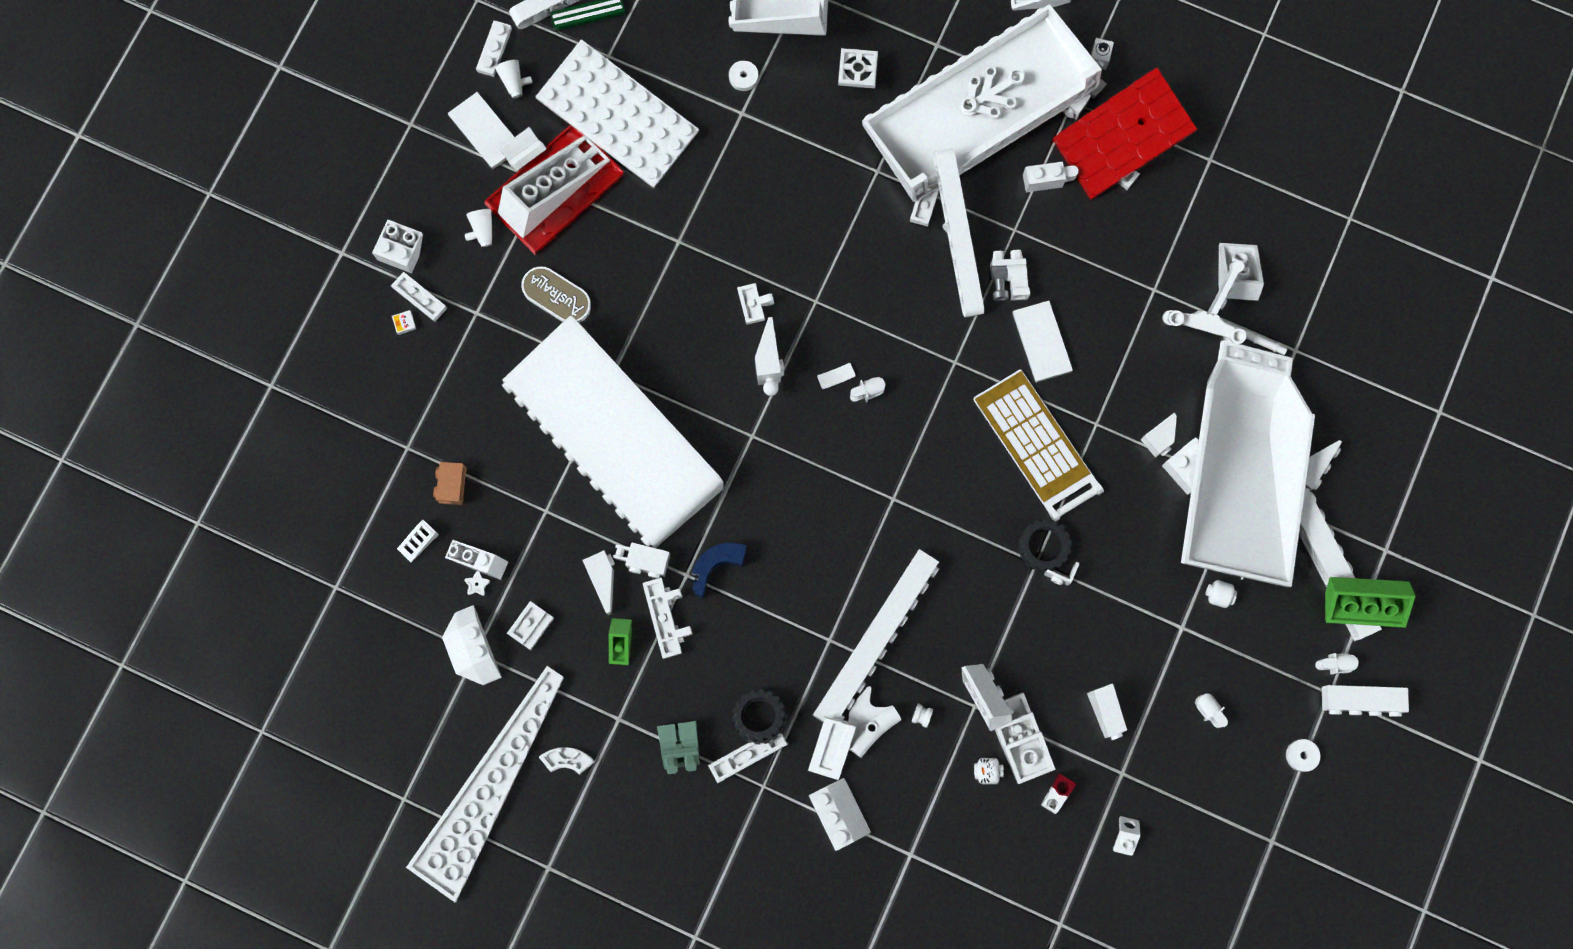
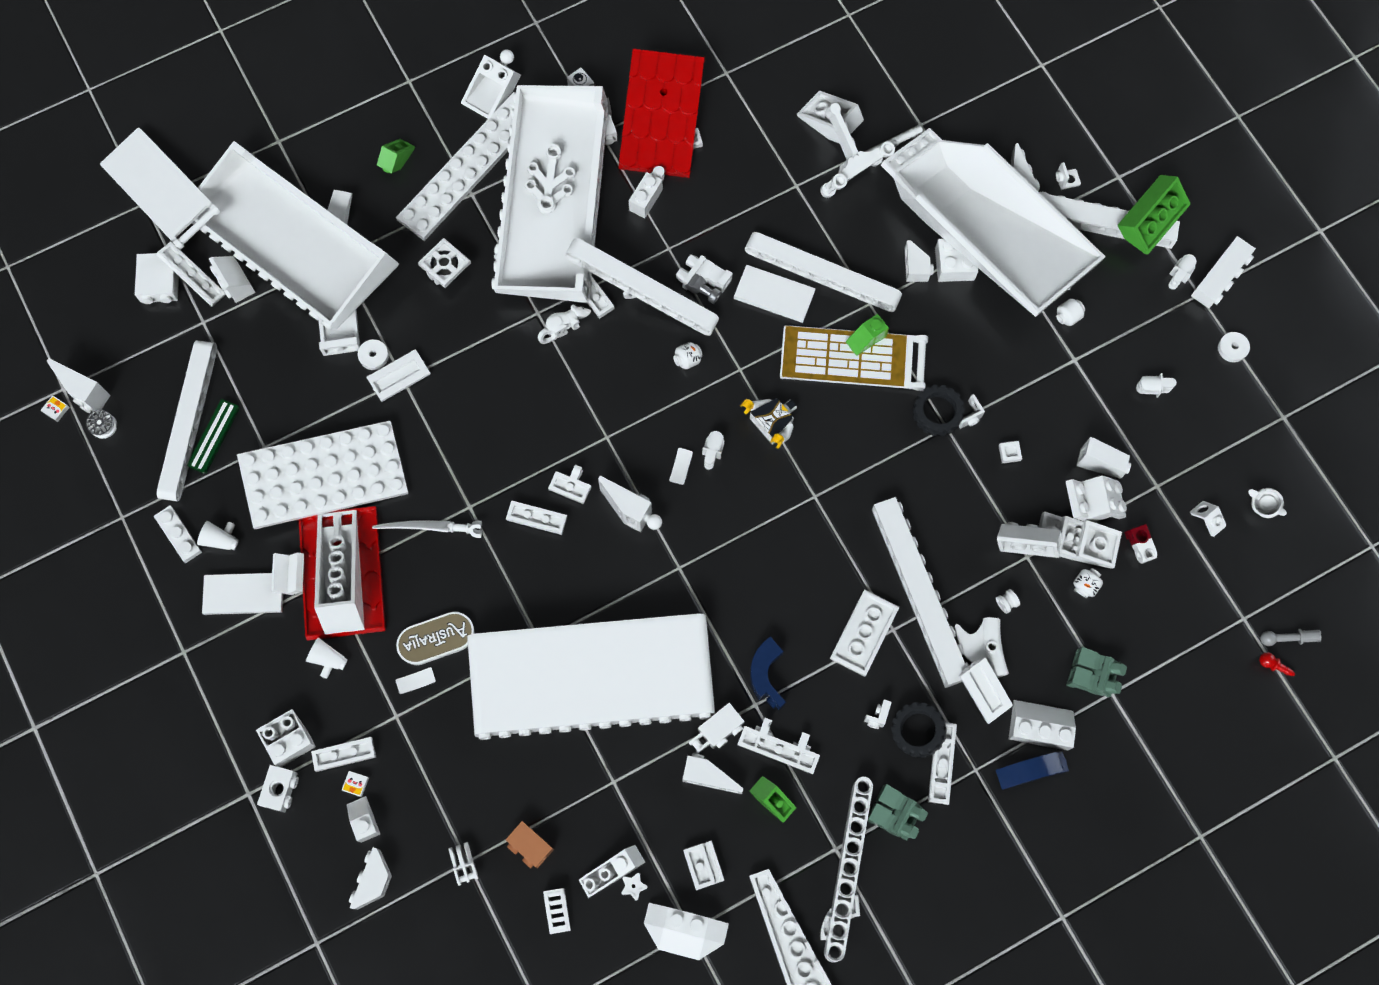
camera: 55 degrees left, 5 degrees down
(342, 389) = (372, 881): none -> white slope
(348, 268) = (275, 777): none -> white brick
(380, 348) = (362, 820): none -> white slope
(404, 442) = (463, 865): none -> white arm
(513, 306) = (415, 680): none -> white sticker
(597, 739) = (843, 877): none -> white beam
(642, 226) = (443, 526): none -> white sword
(707, 297) = (536, 517): none -> white plate
(739, 44) = (342, 340): none -> white panel
(741, 107) = (398, 375): none -> white piece
(753, 677) = (882, 713): none -> white bracket
(795, 831) = (1032, 769): none -> dark blue arch
(809, 618) = (864, 633): none -> white tile
(881, 193) = (559, 323): none -> white animal
(915, 837) = (1095, 673): none -> sand green hips
(930, 417) = (771, 418): none -> torso
(932, 312) = (687, 355): none -> white head
(942, 22) = (459, 174): none -> white plate
(1054, 629) = (1010, 452): none -> white plate
(1063, 441) = (867, 335): none -> bright green slope
(1066, 727) = (1096, 499): none -> white bracket
(1092, 366) = (823, 272): none -> white beam
(1177, 876) = (1267, 502): none -> white hair
(1344, 499) = (1062, 177): none -> white bracket

